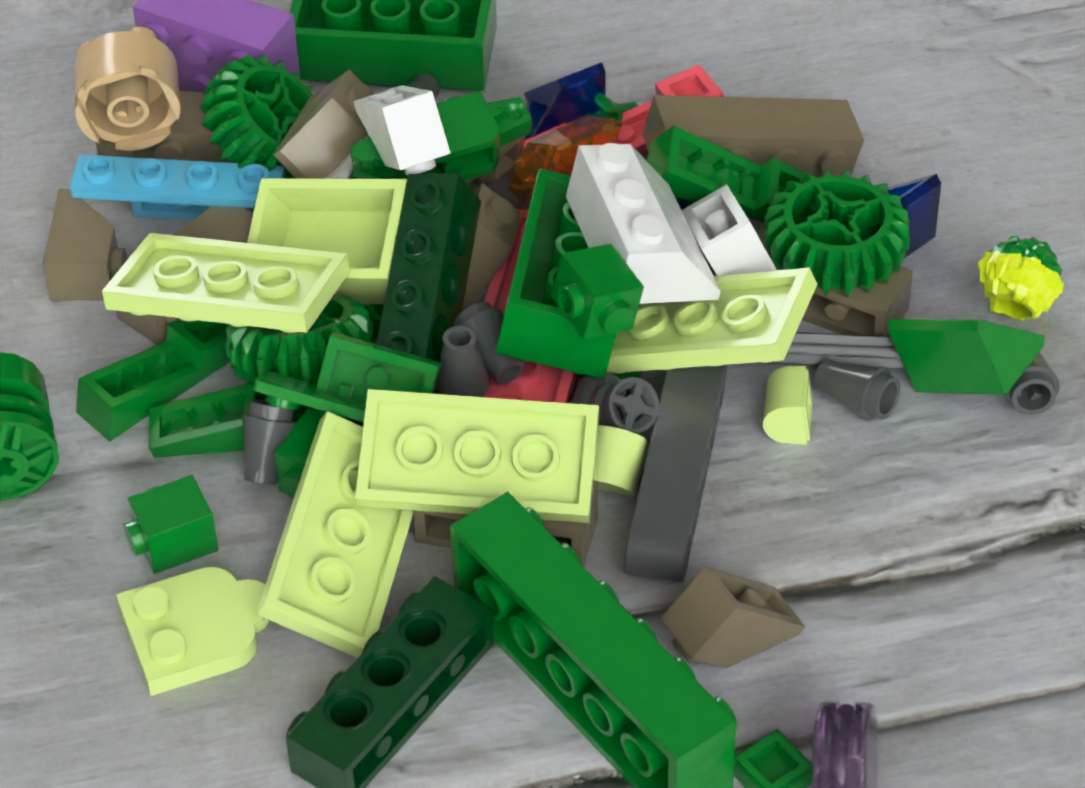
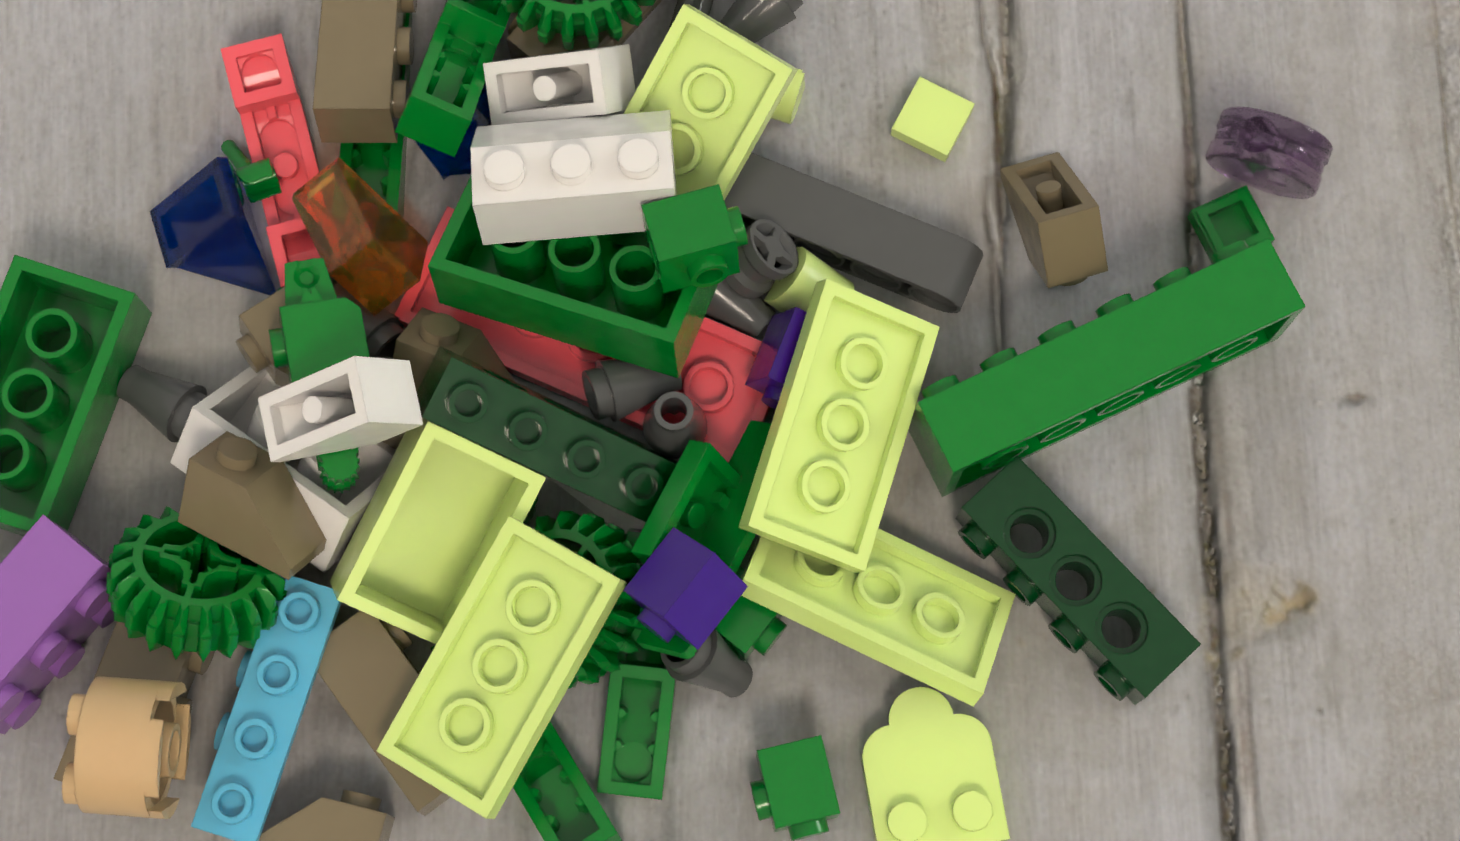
camera: 80 degrees left, 30 degrees up
(306, 363) = (684, 590): none -> dark purple brick
(803, 528) = (932, 119): none -> yellowish green tile

